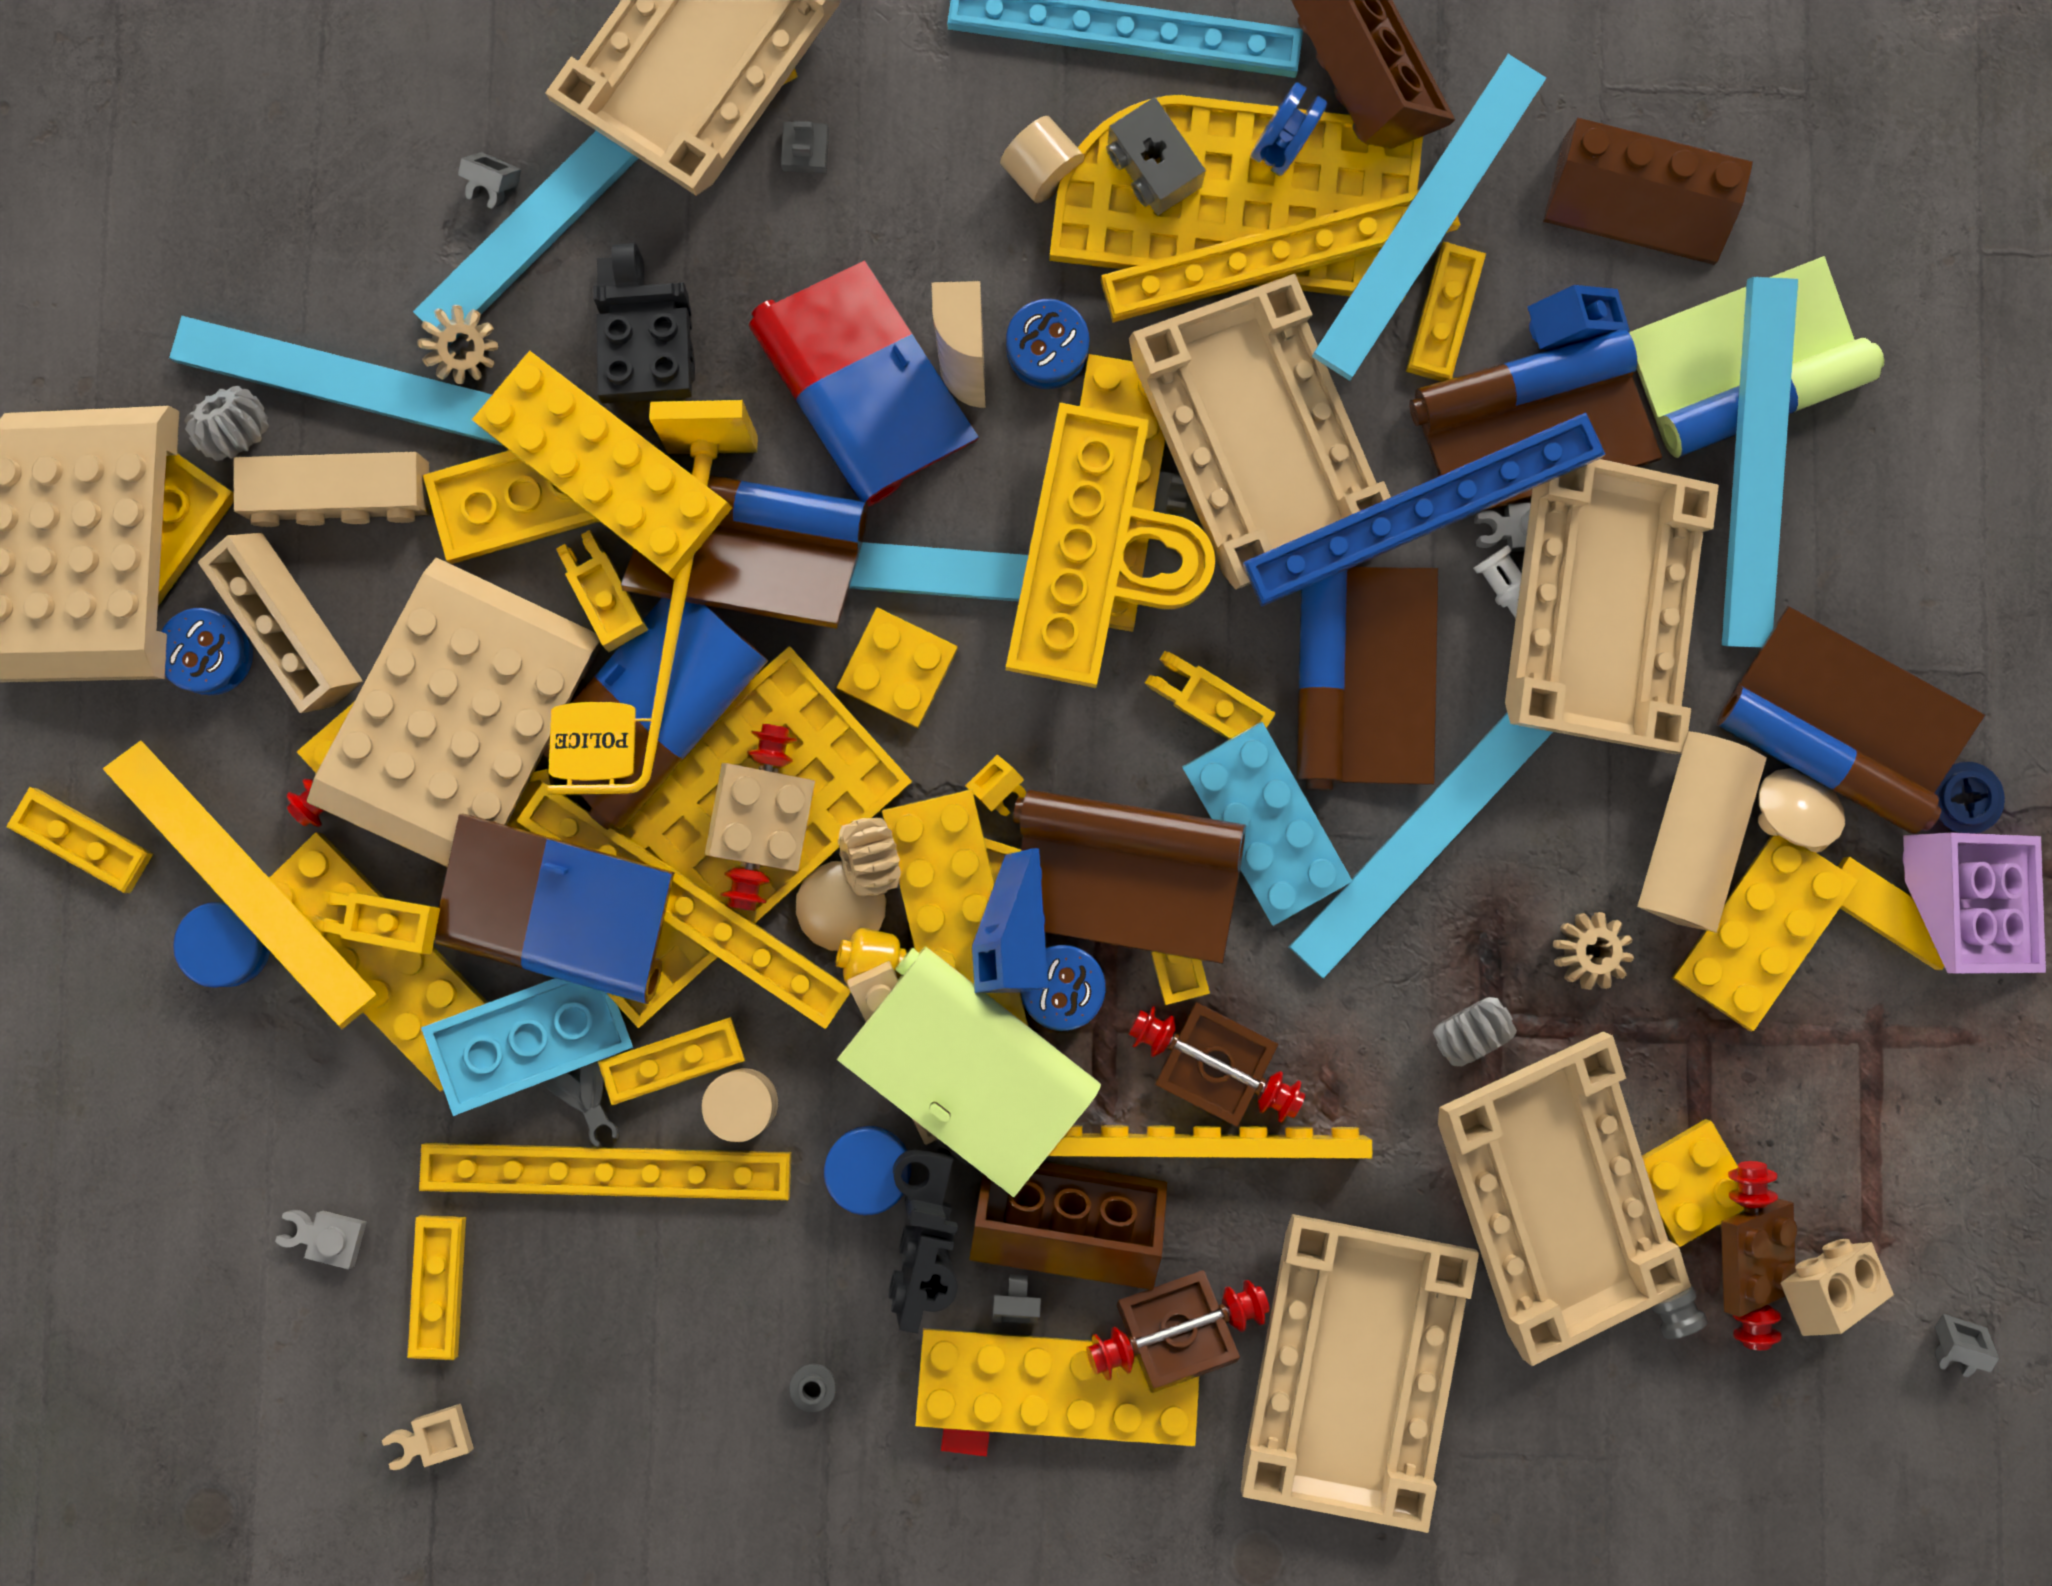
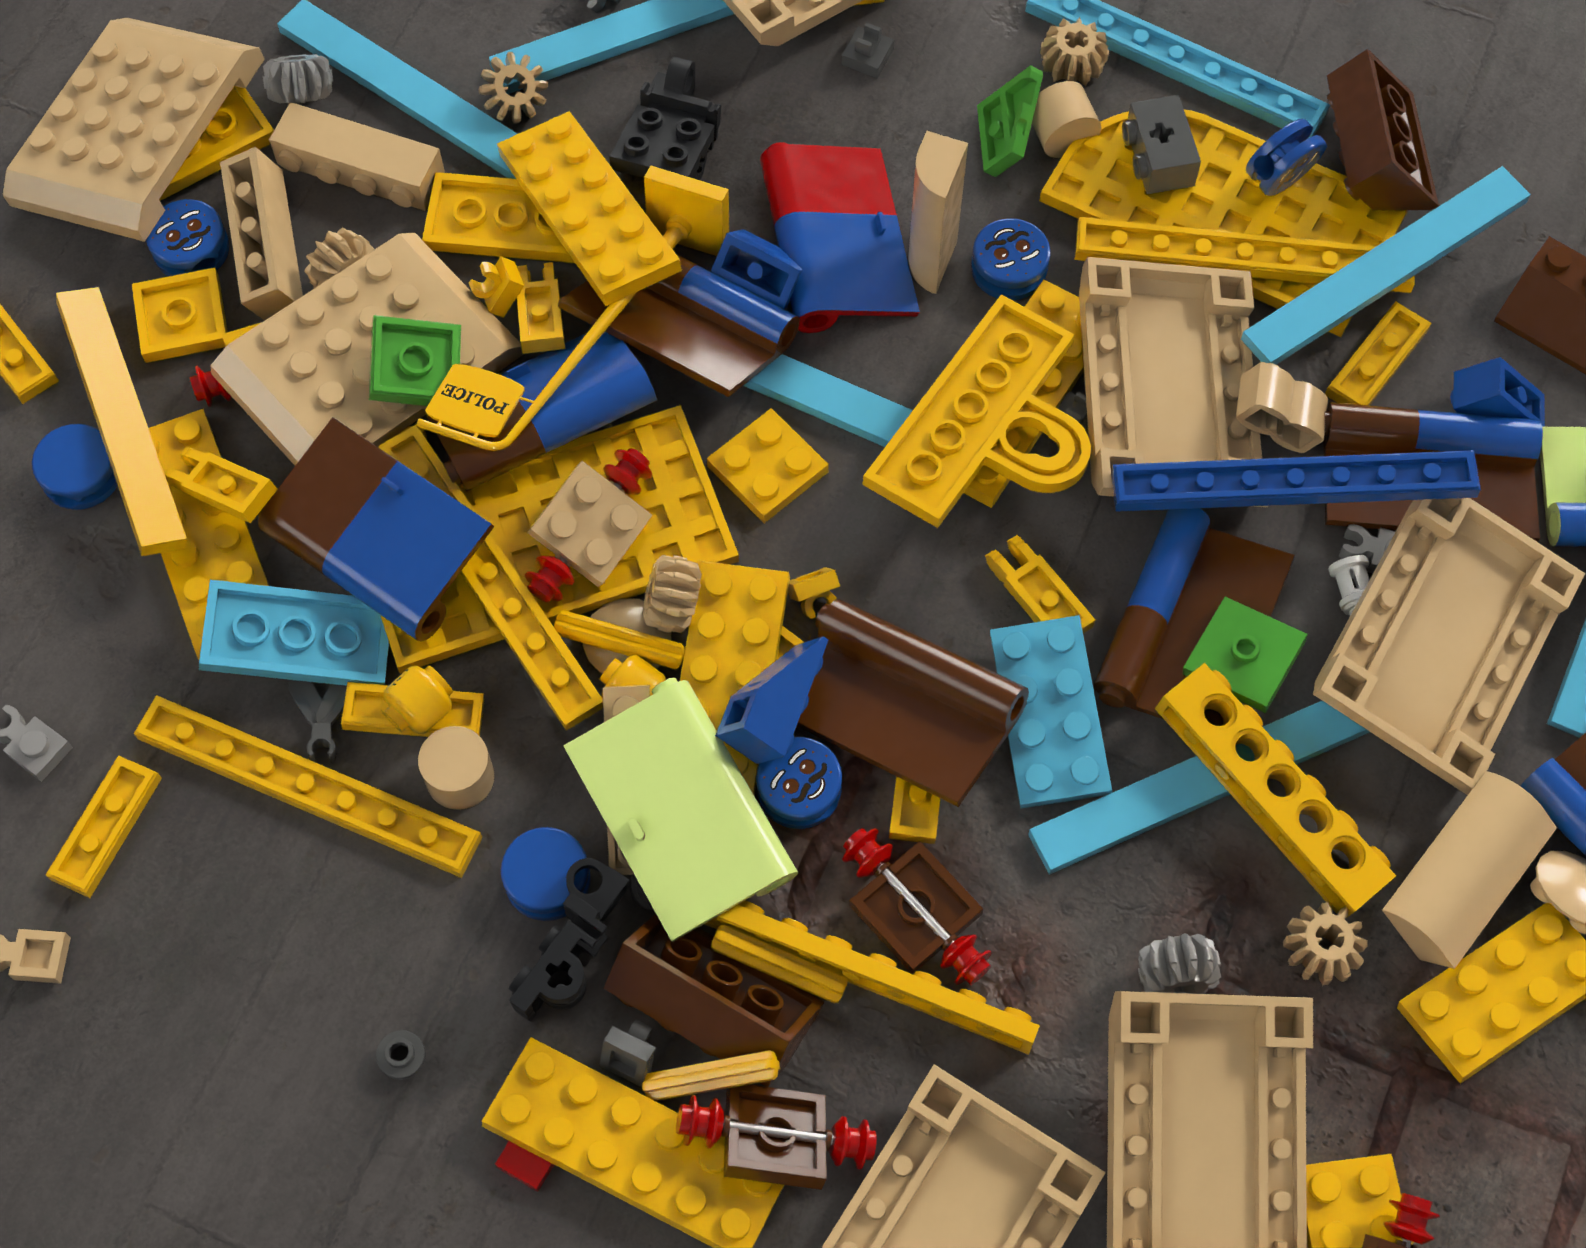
camera: 25 degrees right, 20 degrees down
(240, 738) = (179, 315): none -> yellow plate
(372, 621) = (335, 255): none -> tan gear
(507, 718) = (410, 358): none -> bright green plate
(548, 582) = (500, 287): none -> yellow tile
(676, 1061) = (417, 699): none -> yellow head
(802, 460) = (757, 267): none -> blue slope
(837, 919) = (619, 639): none -> yellow axle
(985, 184) = (1007, 121): none -> bright green wing
(1008, 57) = (1074, 51): none -> tan gear
(1100, 1302) = (711, 1076): none -> yellow axle
(1114, 1169) = (779, 963): none -> yellow axle
(1375, 414) = (1282, 407): none -> tan brick
(1428, 695) = (1249, 651): none -> bright green plate
(1608, 872) = (1275, 815): none -> yellow brick

